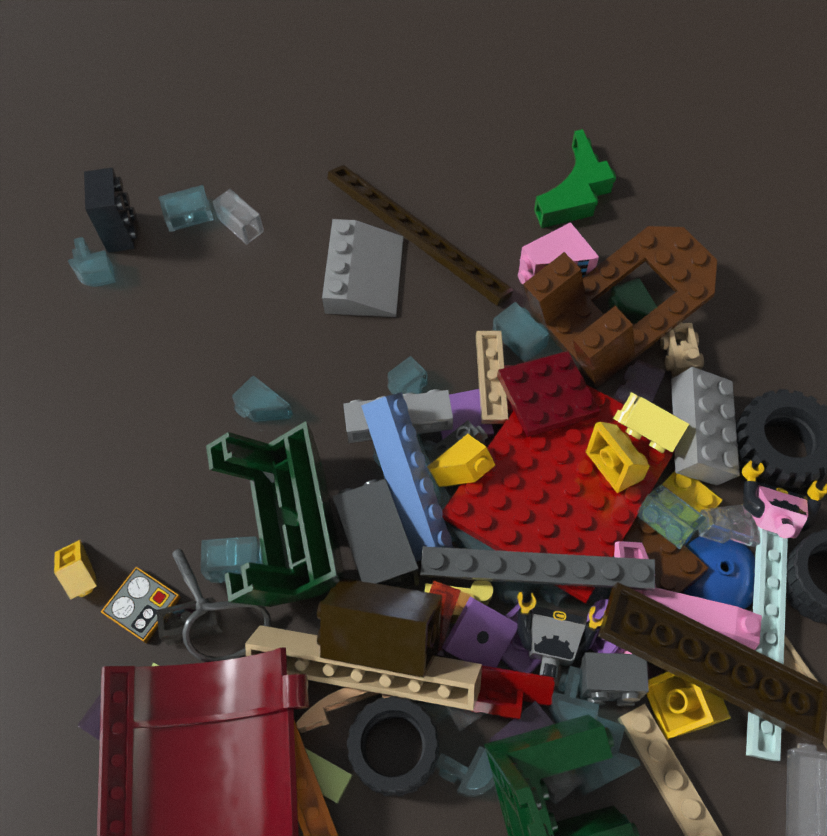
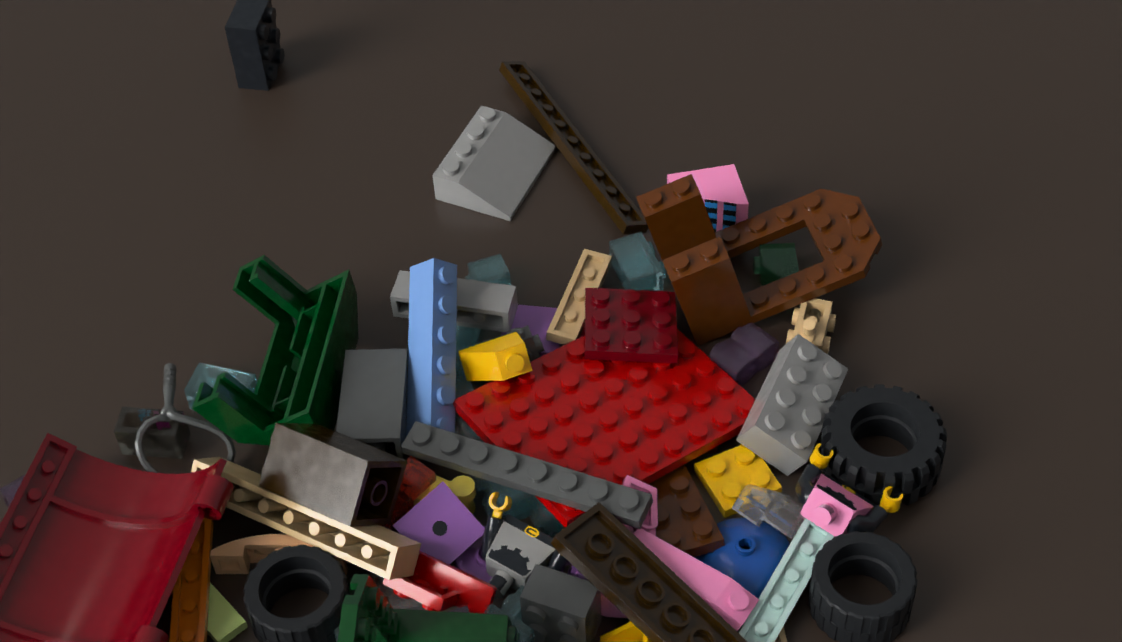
camera: 20 degrees right, 15 degrees down
(74, 570) = (64, 360): yellow slope -> none
(90, 268) = (213, 94): clear light blue brick -> none
(137, 602) = (103, 406): tile -> none
(185, 208) = (337, 63): clear light blue brick -> none
(238, 216) = (386, 83): clear piece -> none
(260, 402) = (320, 257): clear light blue slope -> none
(579, 191) = (772, 146): green arch -> none
(616, 456) = (668, 395): yellow slope -> none
(651, 422) = (727, 378): light yellow hinge -> none
(670, 516) = (705, 477): clear light blue brick -> none

